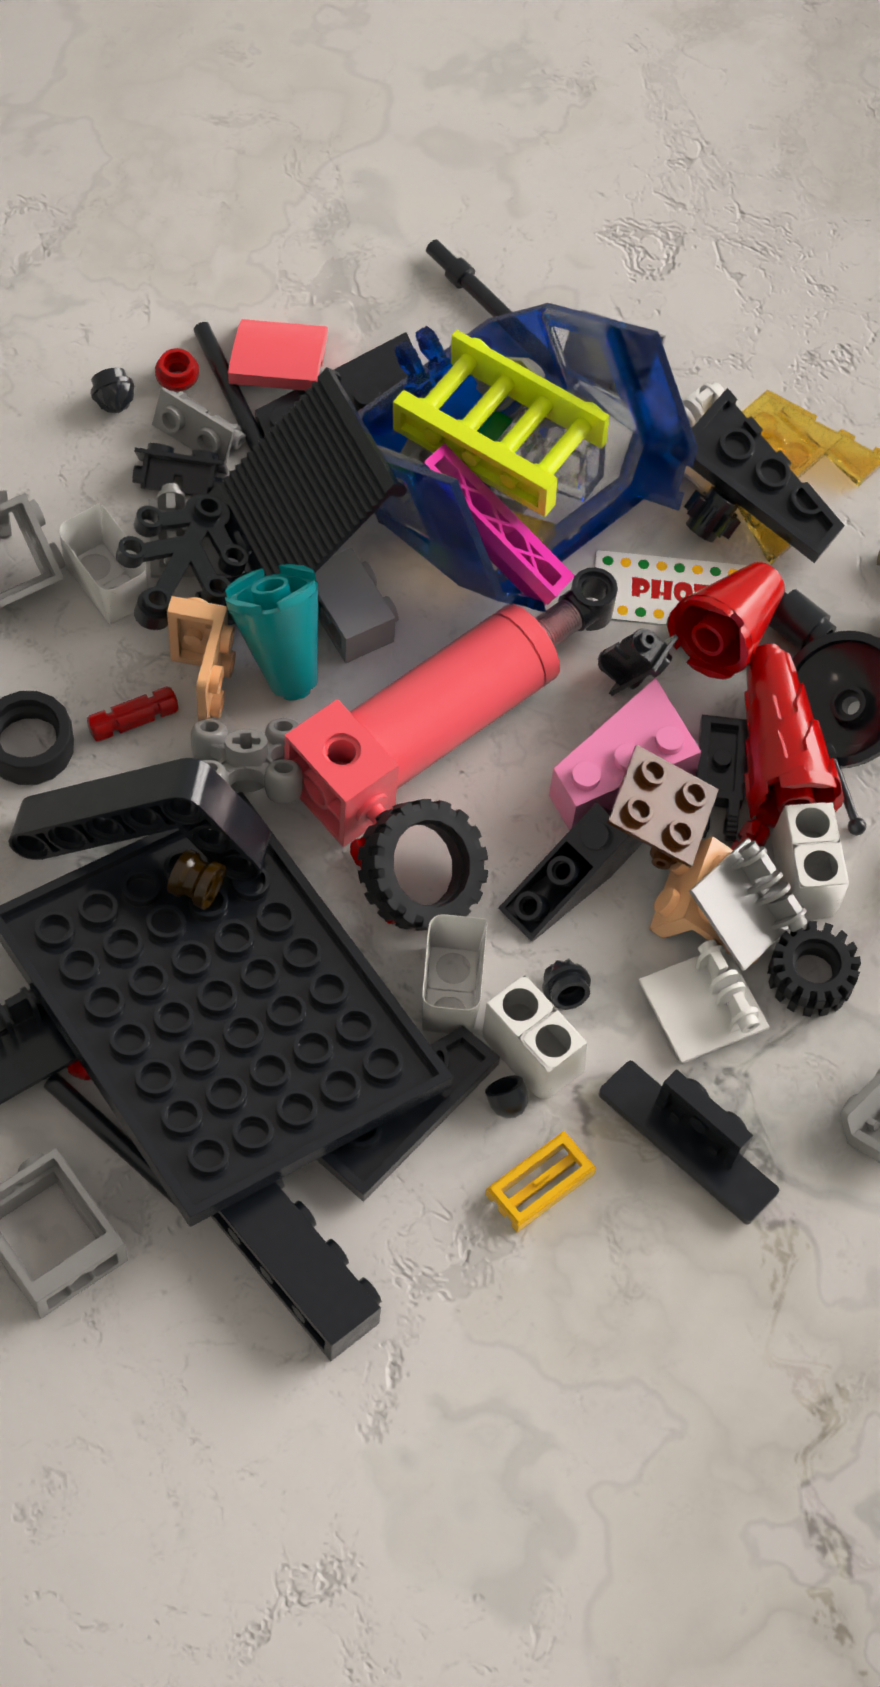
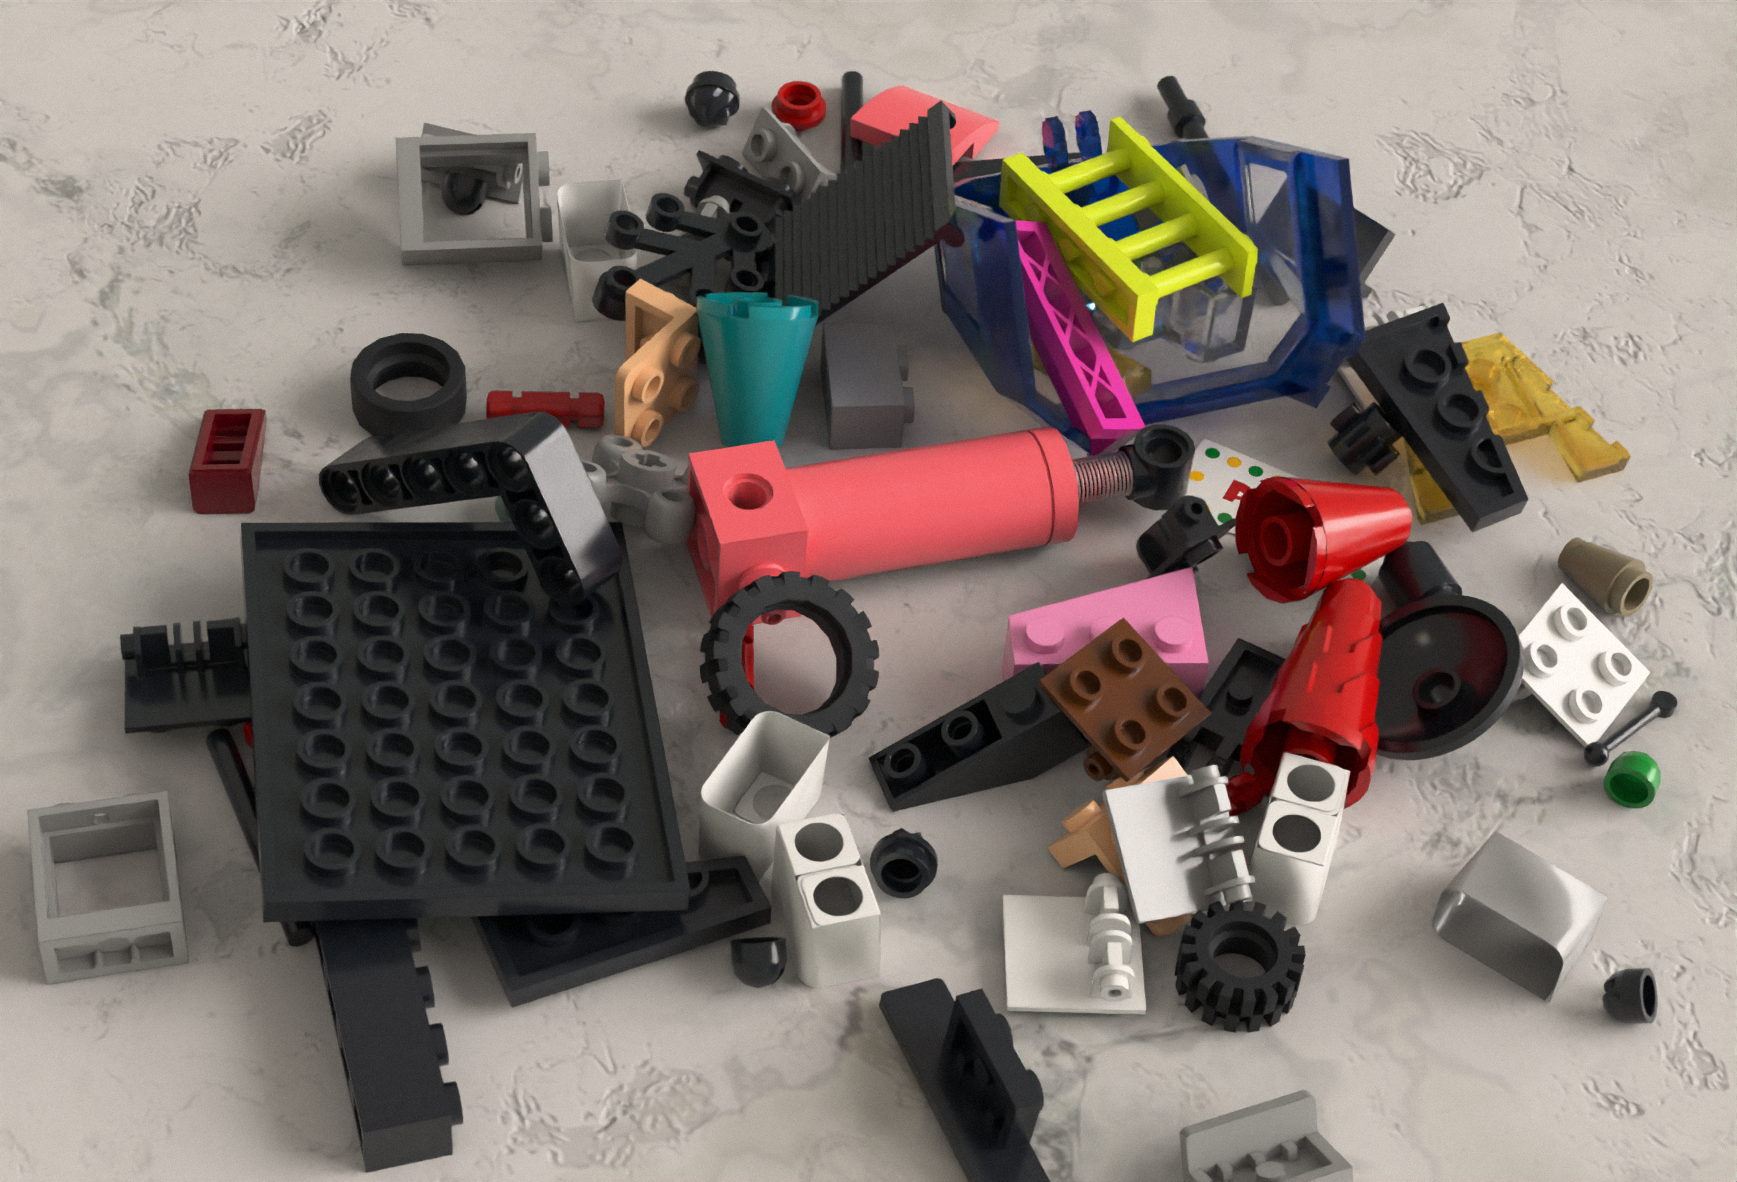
camera: 25 degrees right, 15 degrees down
(196, 879) = (501, 571): dark brown wheel -> none
(508, 1207) = (753, 1081): yellow tile -> none
(856, 824) = (1384, 832): black hinge -> none

